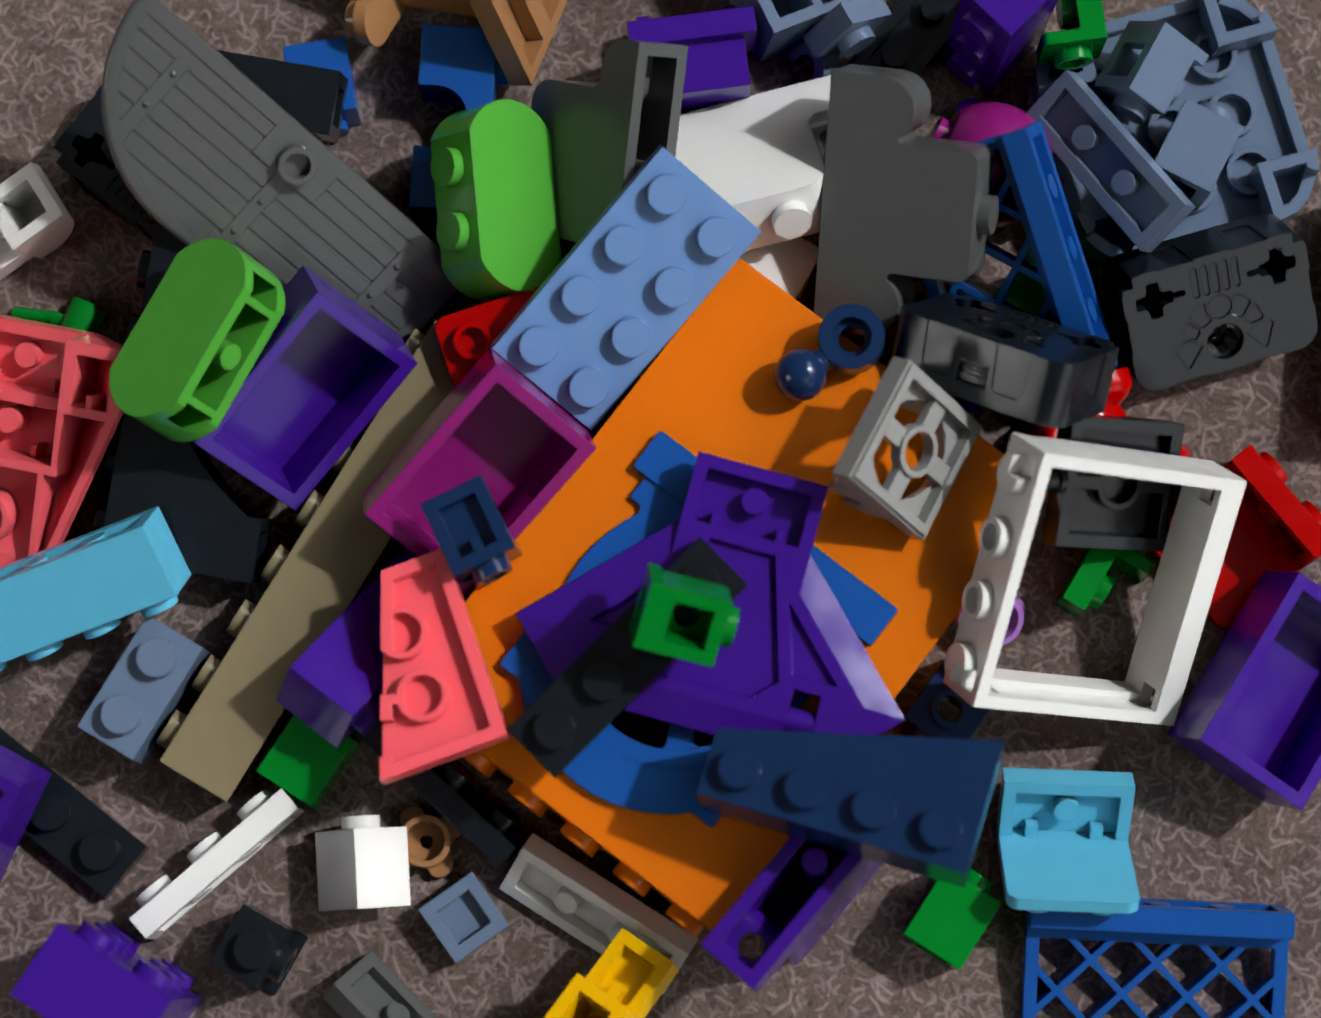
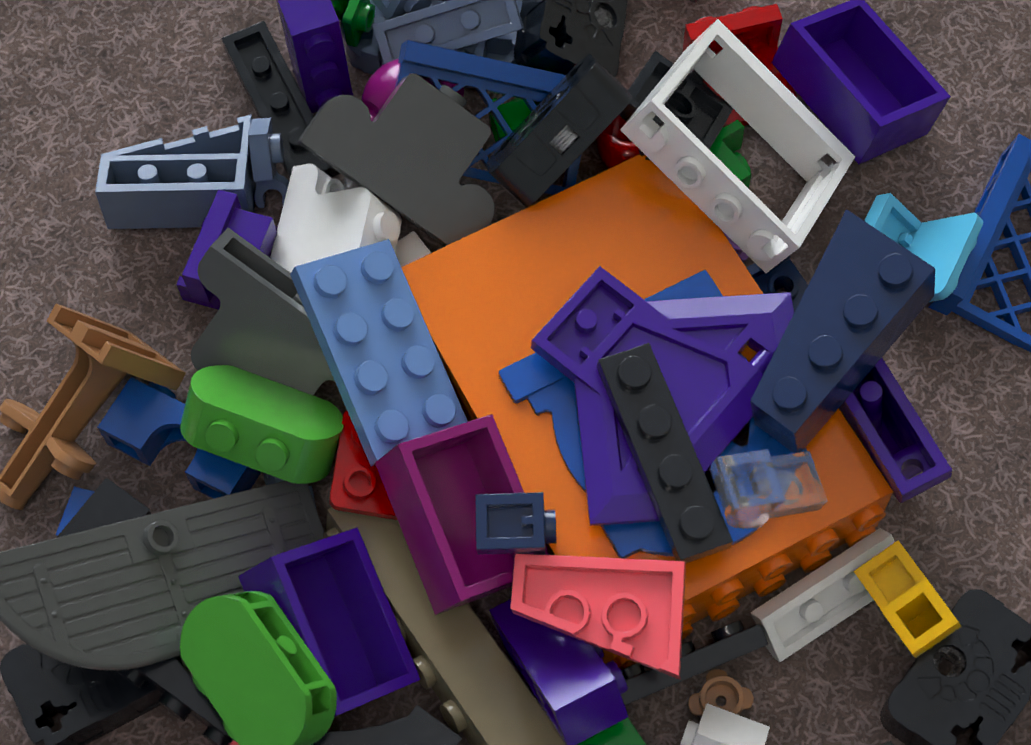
camera: 60 degrees left, 15 degrees down
(464, 917) = (793, 695): sand blue plate -> none
(638, 789) = (766, 487): none -> clear brick
(691, 639) = (657, 384): green brick -> none
(803, 372) = (505, 255): dark blue plate -> none
(941, 460) = (632, 220): light grey piece -> none
(951, 919) = (932, 354): green brick -> none

